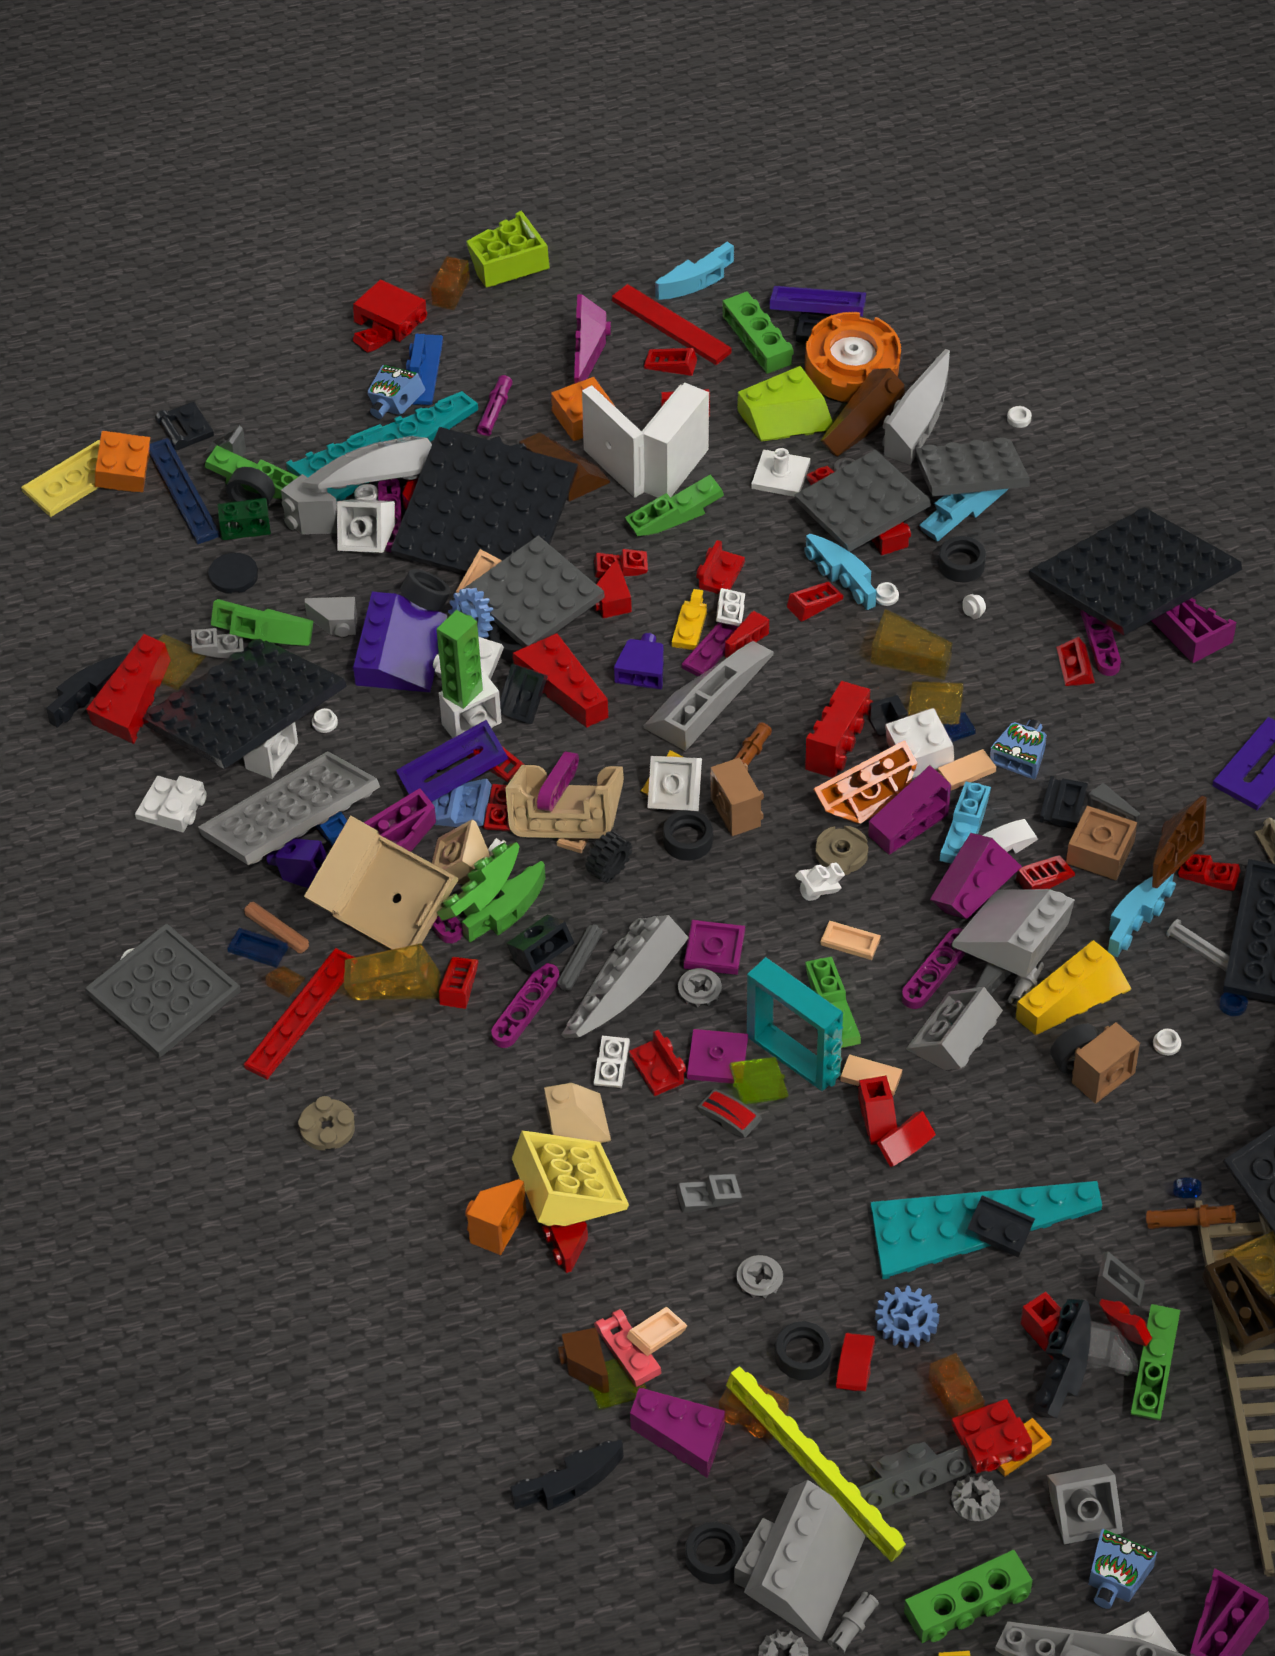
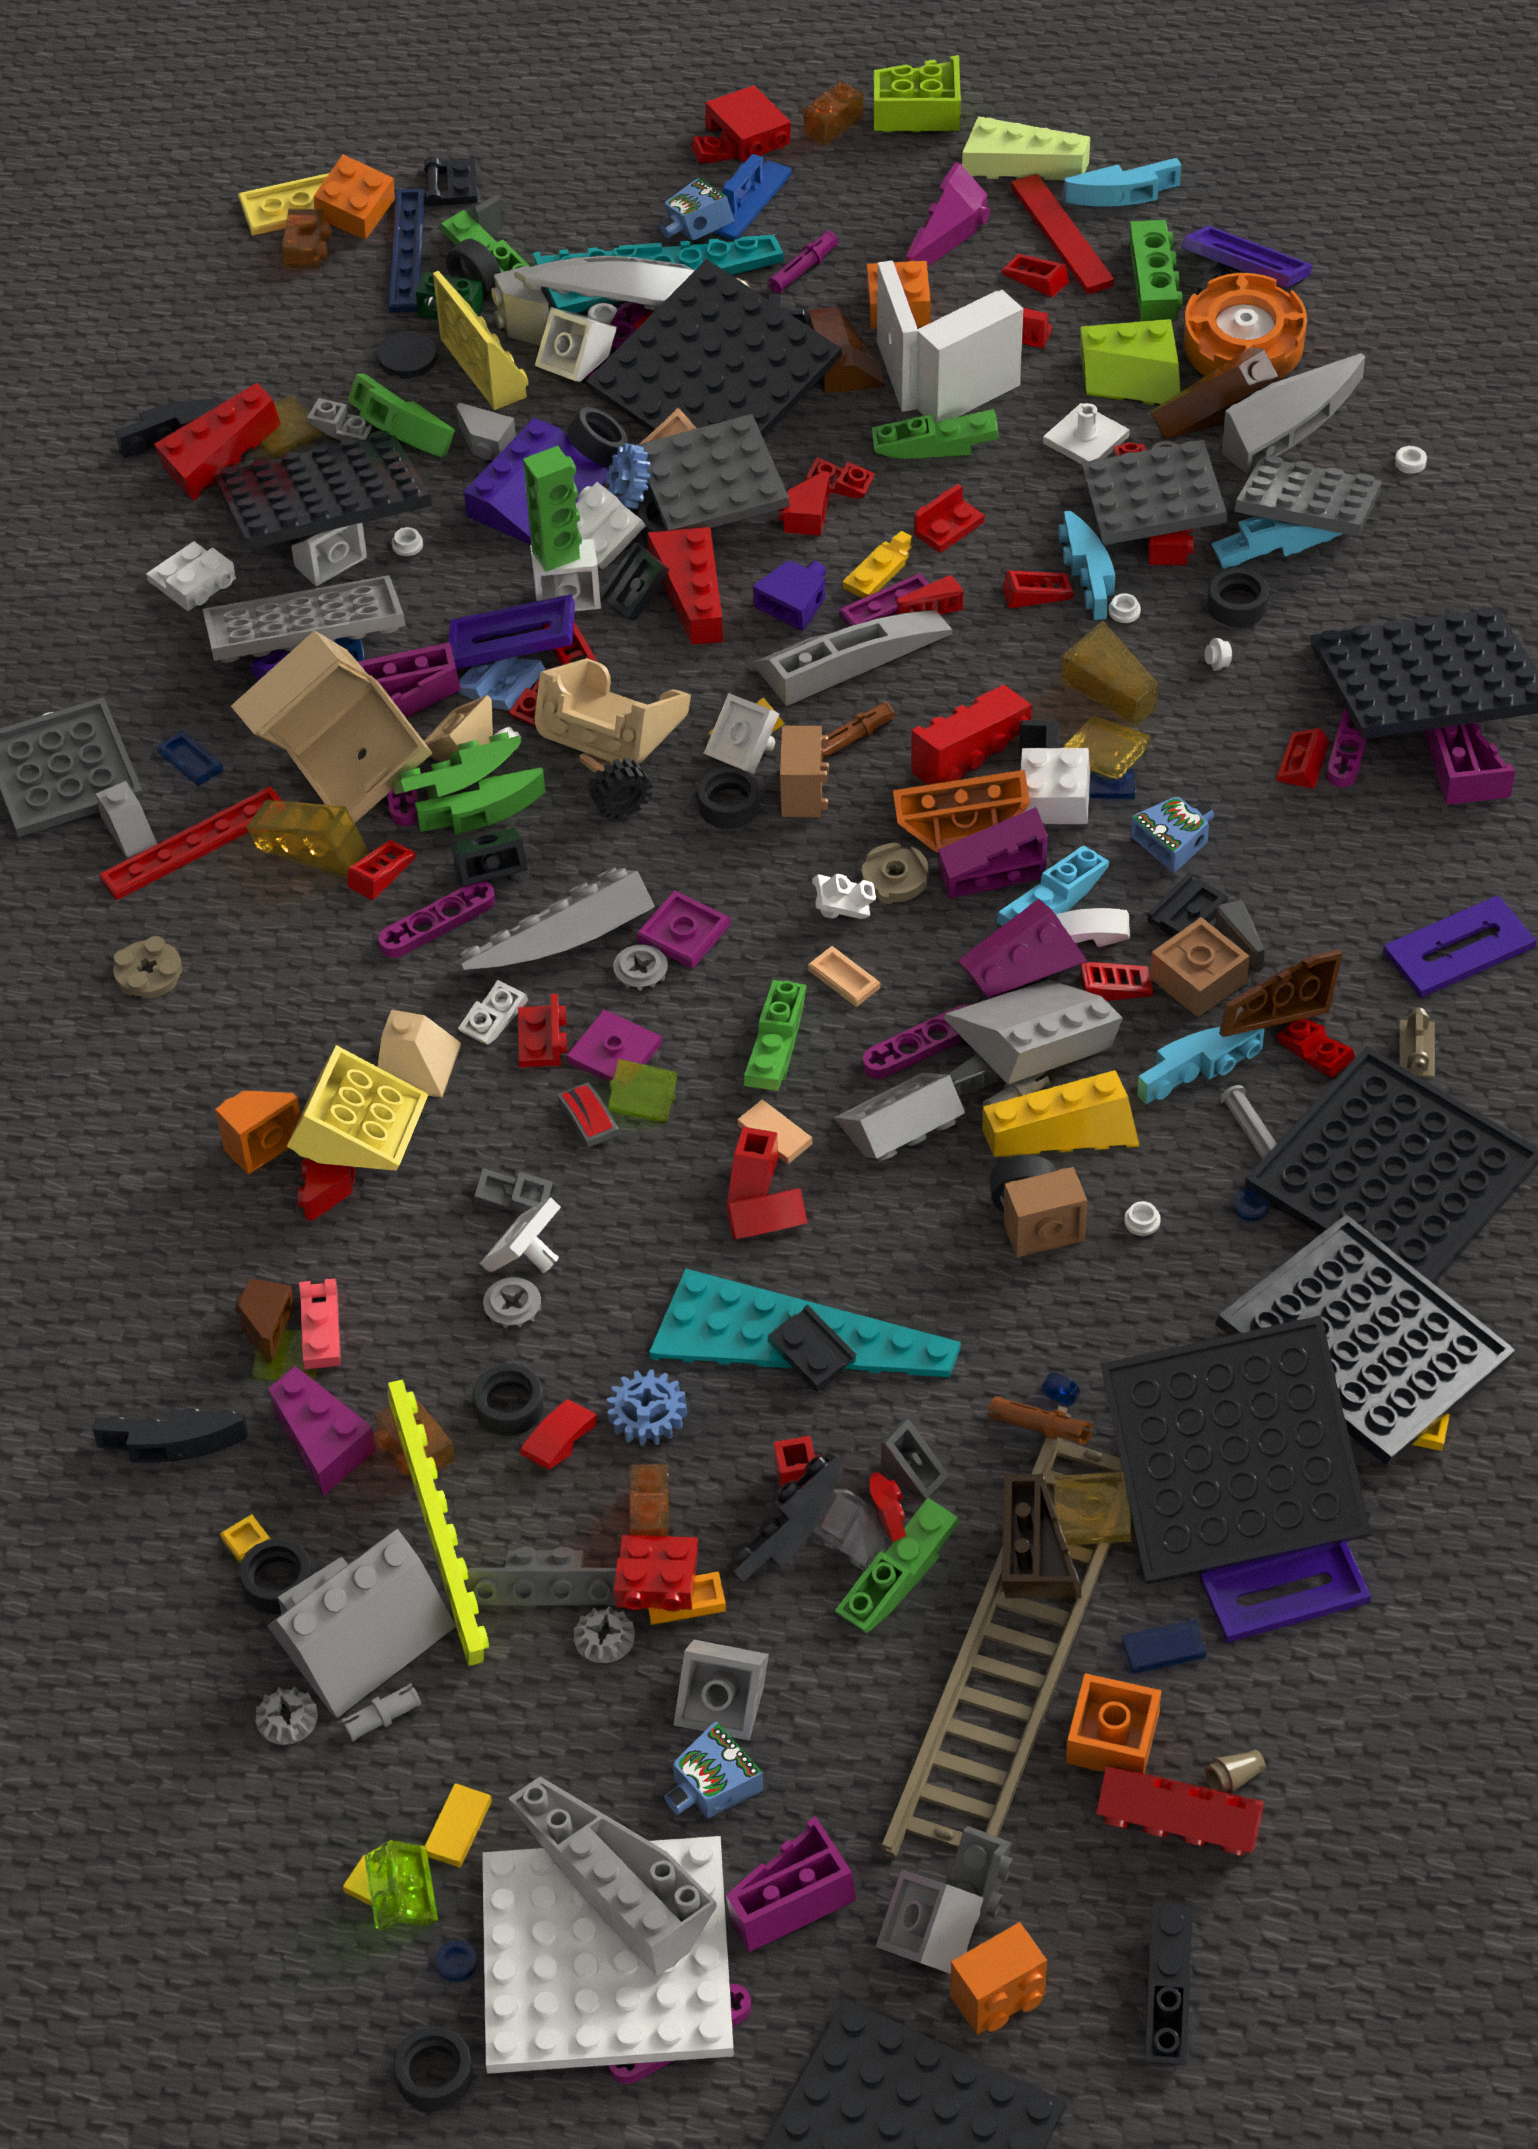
camera: 25 degrees right, 0 degrees up
(99, 506) = (305, 239): none -> clear orange brick
(241, 1014) = (125, 819): none -> light grey slope
(276, 927) = (222, 743): nougat axle -> none
(284, 980) = (195, 801): clear orange slope -> none
(292, 550) = (477, 349): none -> light yellow slope
(557, 781) = (612, 688): magenta beam -> none
(579, 957) = (527, 889): dark grey axle -> none
(610, 270) = (1023, 150): none -> yellowish green wedge
(656, 1331) = (359, 1316): light nougat tile -> none
(671, 1533) = (243, 1536): none -> yellow tile
(730, 607) = (931, 564): white slope -> none
(743, 1224) = (523, 1239): none -> white tile
(771, 982) = (693, 1034): teal window -> none
(967, 769) = (1098, 834): light nougat tile -> none
(1004, 1570) = (509, 1723): bright green brick -> none

